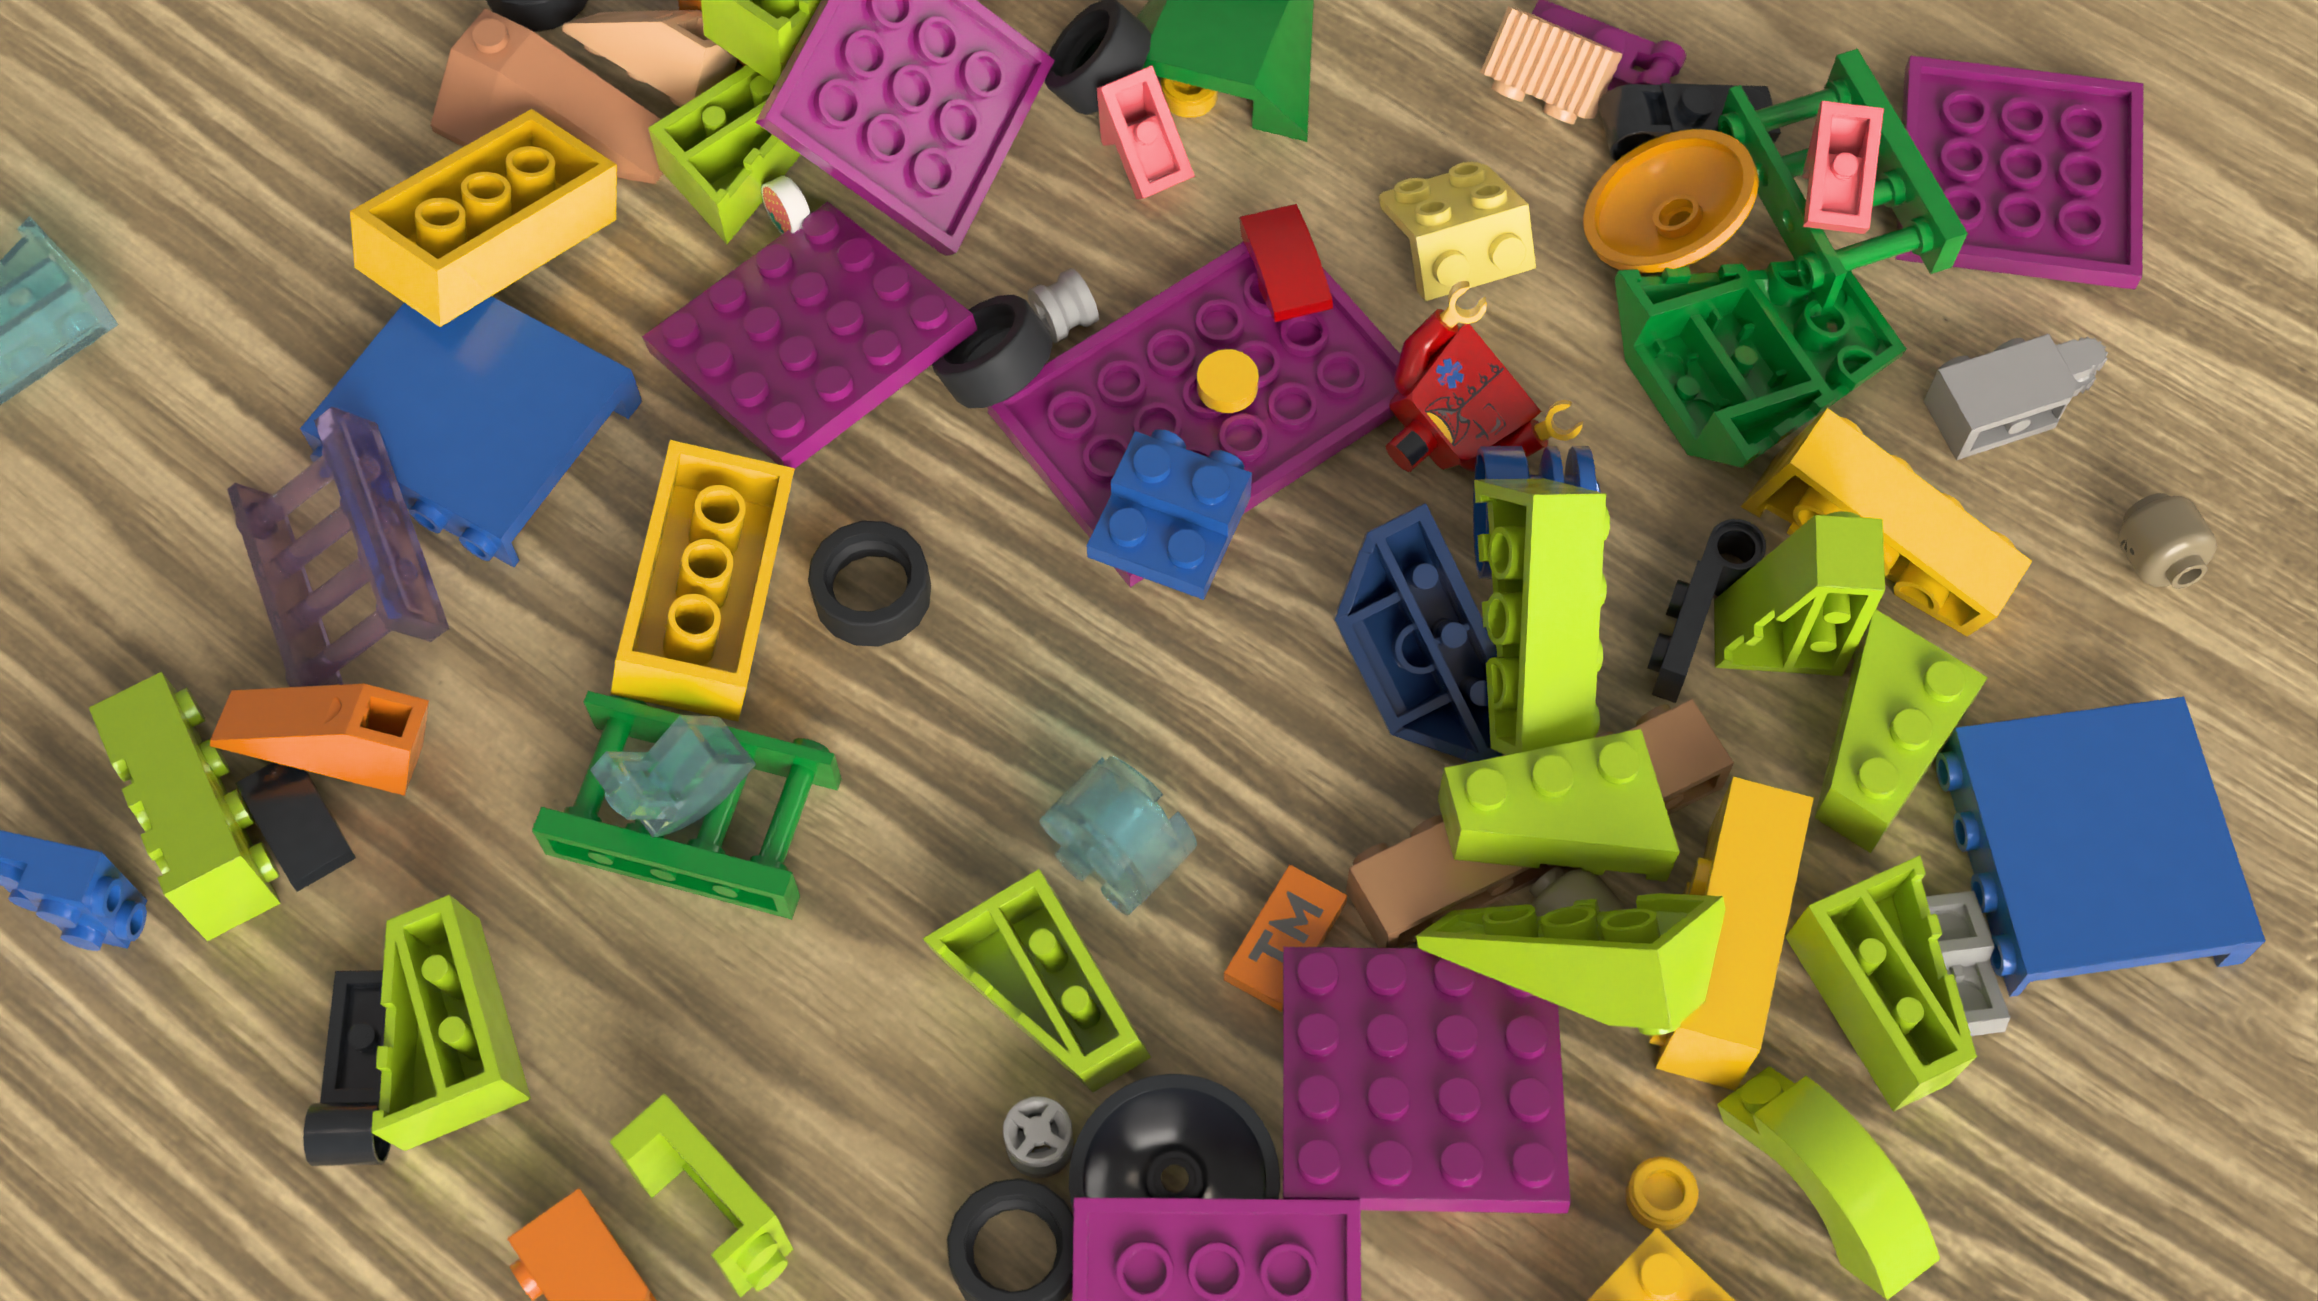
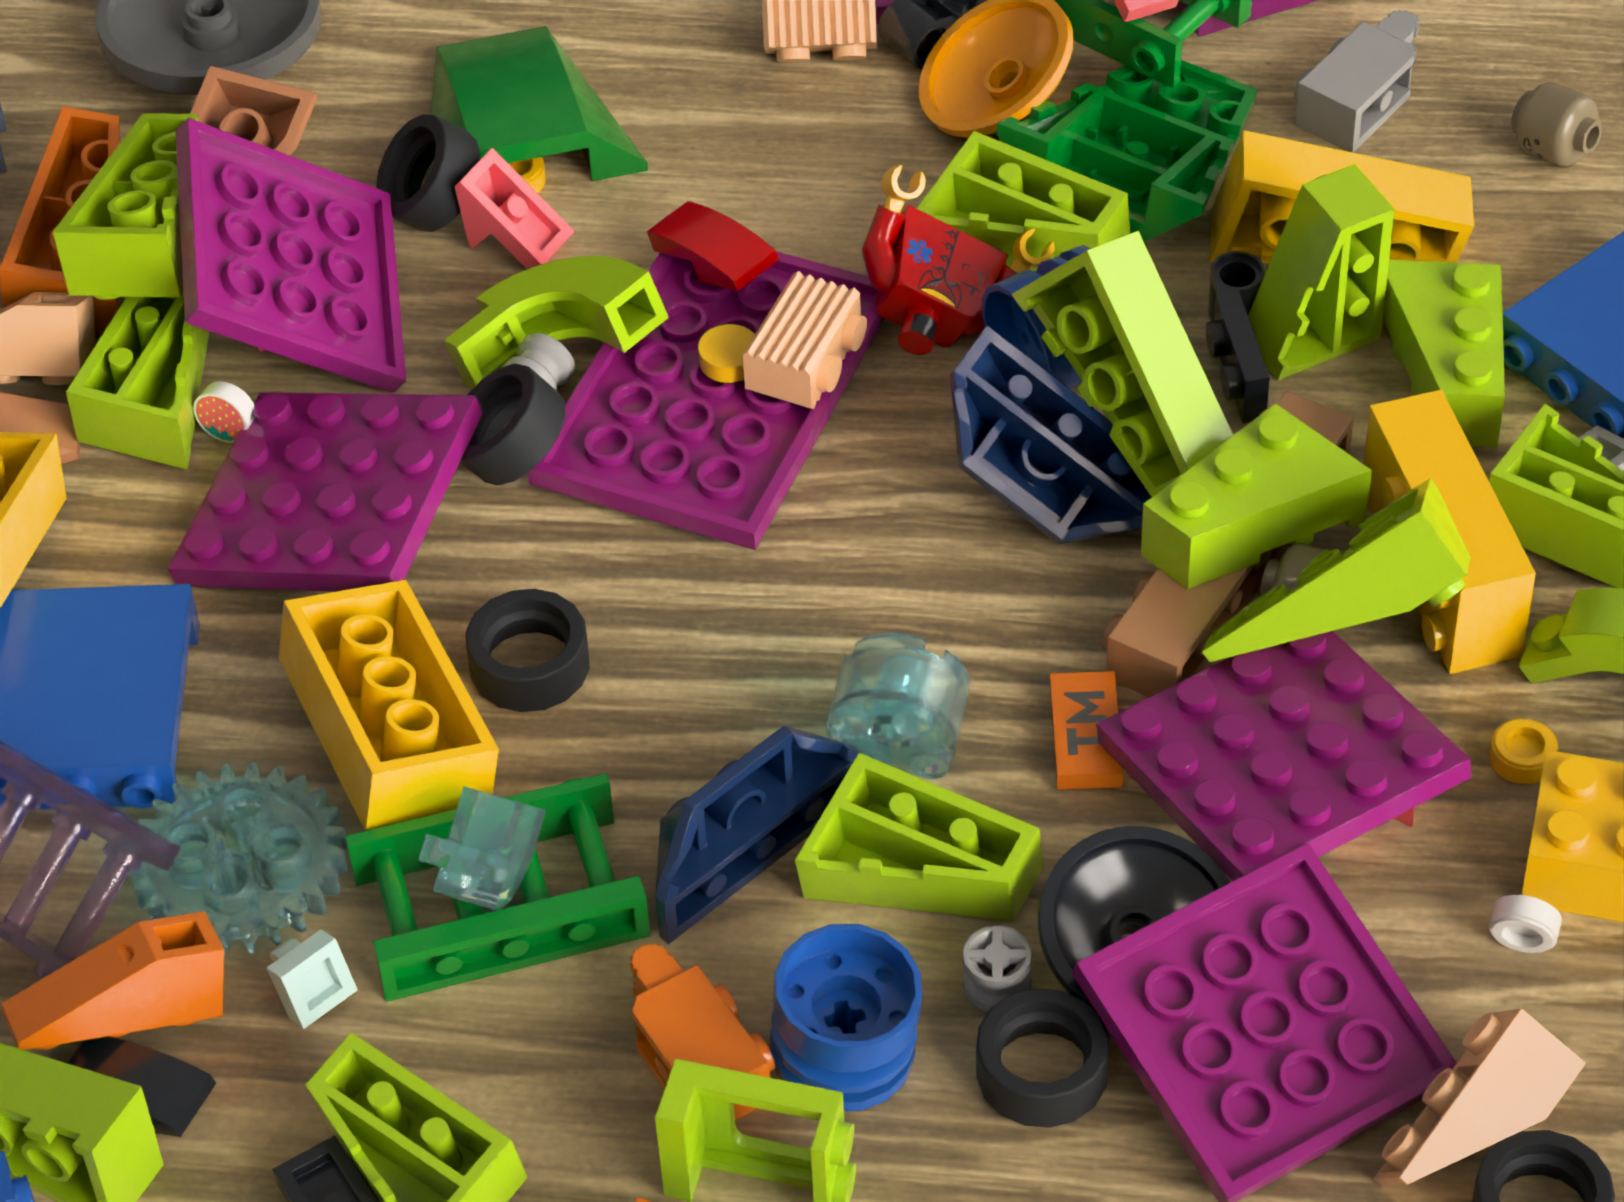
camera: 30 degrees left, 15 degrees down
(486, 803) = (310, 977): none -> light aqua tile
(568, 642) = (264, 822): none -> clear light blue gear
(741, 1053) = (690, 1020): none -> orange hinge
(840, 1086) = (846, 1013): none -> blue wheel
(918, 865) = (743, 823): none -> dark blue wedge
(1106, 246) = (562, 300): none -> lime arch
(1171, 512) = (758, 464): blue plate -> none
(1294, 408) = (804, 341): none -> light nougat brick
(1461, 228) = (836, 163): light yellow bracket -> none
(1579, 351) = (1004, 192): none -> lime wedge

